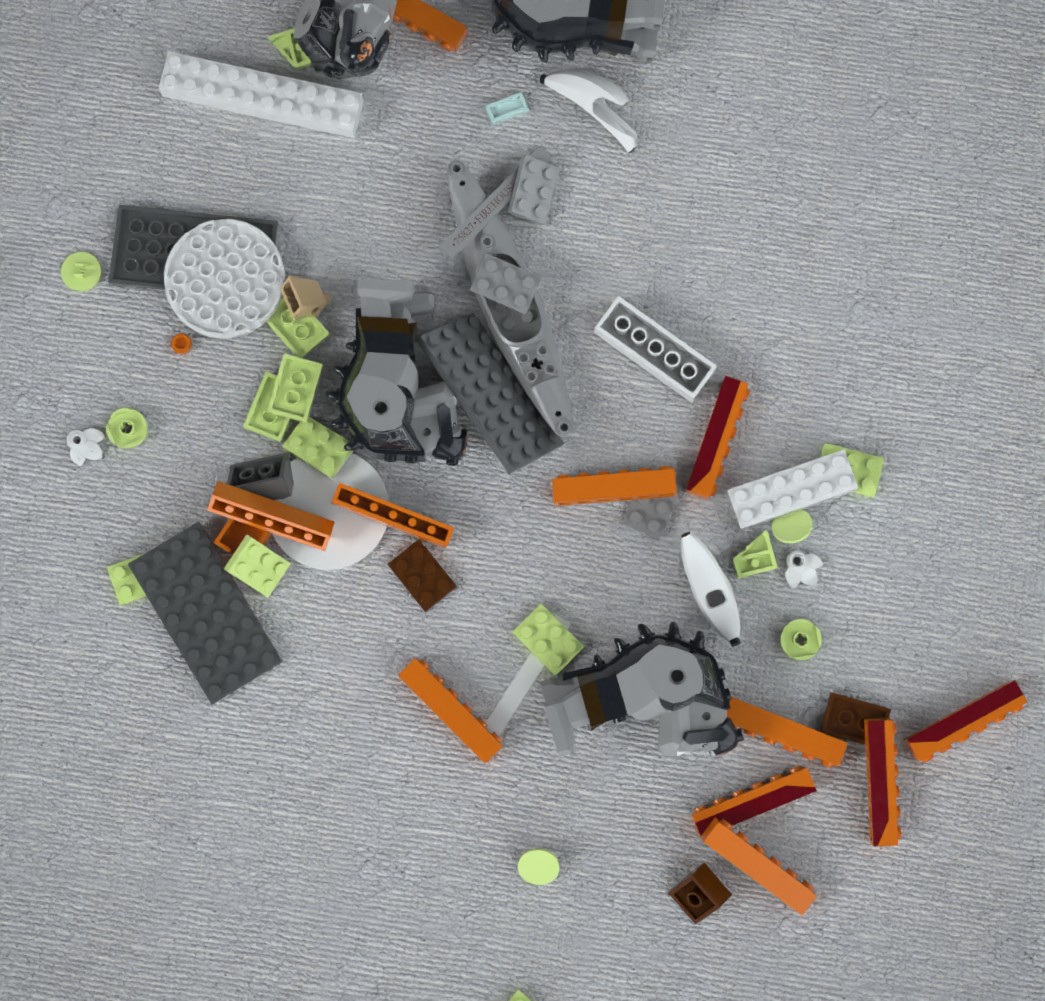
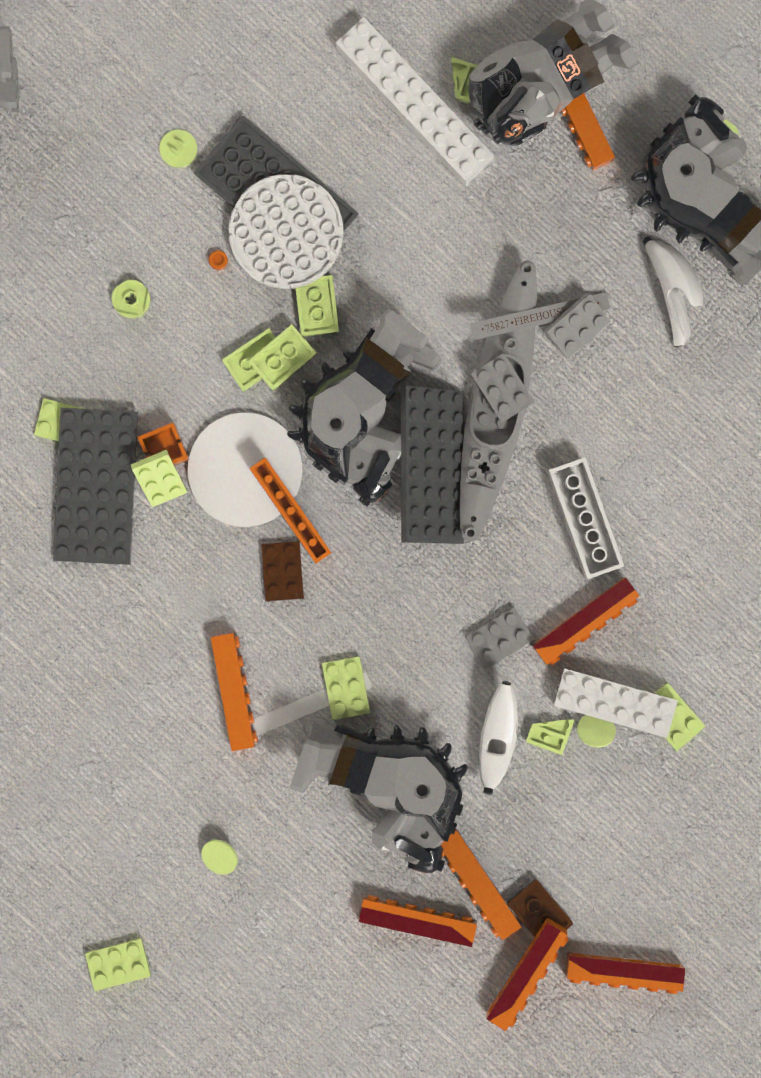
camera: 35 degrees right, 5 degrees up
(87, 447) = (91, 293): white plate -> none
(264, 476) = (206, 412): dark grey slope -> none
(270, 515) = (195, 447): orange brick -> none
(304, 297) = (337, 289): tan torso -> none
(318, 447) = (269, 416): yellowish green plate -> none
(507, 108) = (602, 244): light aqua tile -> none
(614, 487) = (478, 605): orange brick -> none
(700, 893) = (329, 962): reddish brown slope -> none
(758, 866) = (387, 973): orange brick -> none
(804, 571) = (581, 771): white plate -> none
(806, 629) = (535, 812): yellowish green plate -> none

